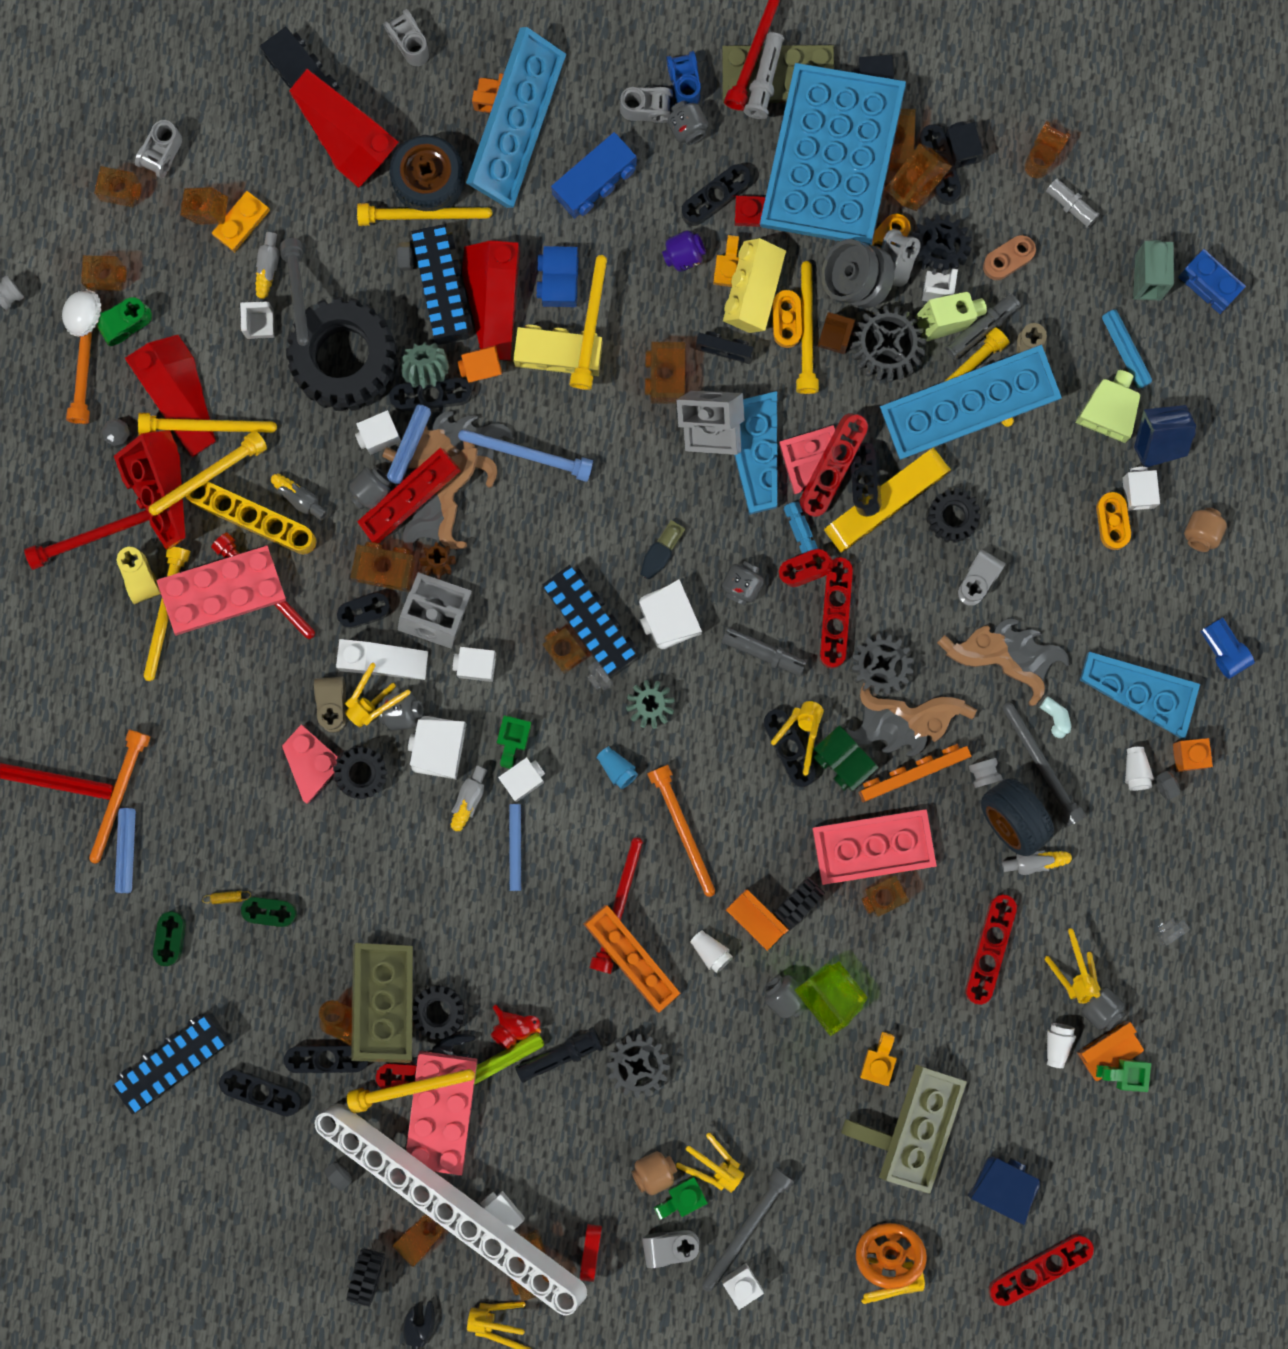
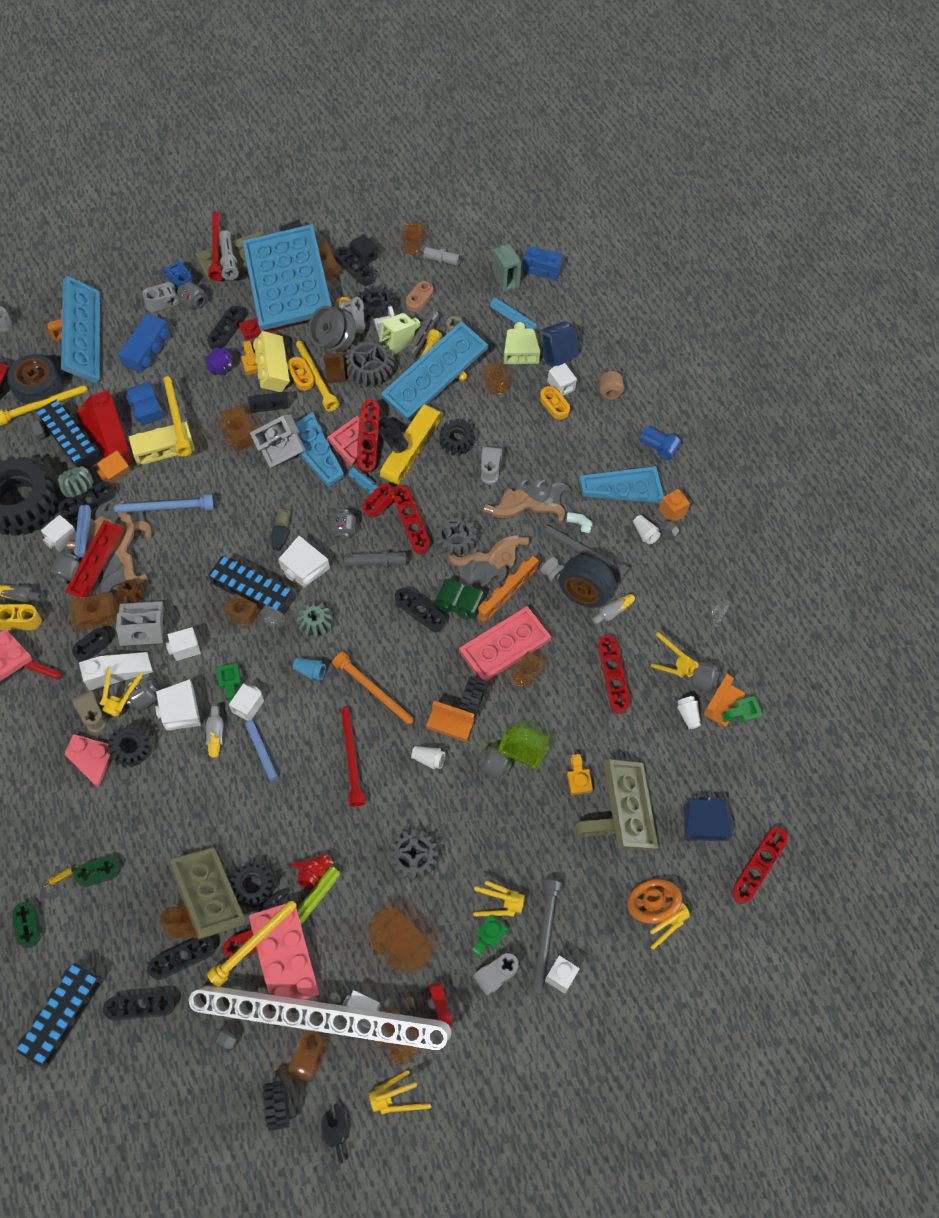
camera: 30 degrees left, 20 degrees down
(570, 1051) = (361, 866): black pin -> none
(576, 1159) = (399, 941): none -> clear orange brick
(631, 958) = (375, 783): orange plate -> none
(654, 1173) = (460, 924): medium nougat head -> none
(808, 720) = (423, 585): yellow plant -> none
(918, 177) = (344, 270): clear orange brick -> none
(1050, 435) = (495, 378): none -> clear orange brick

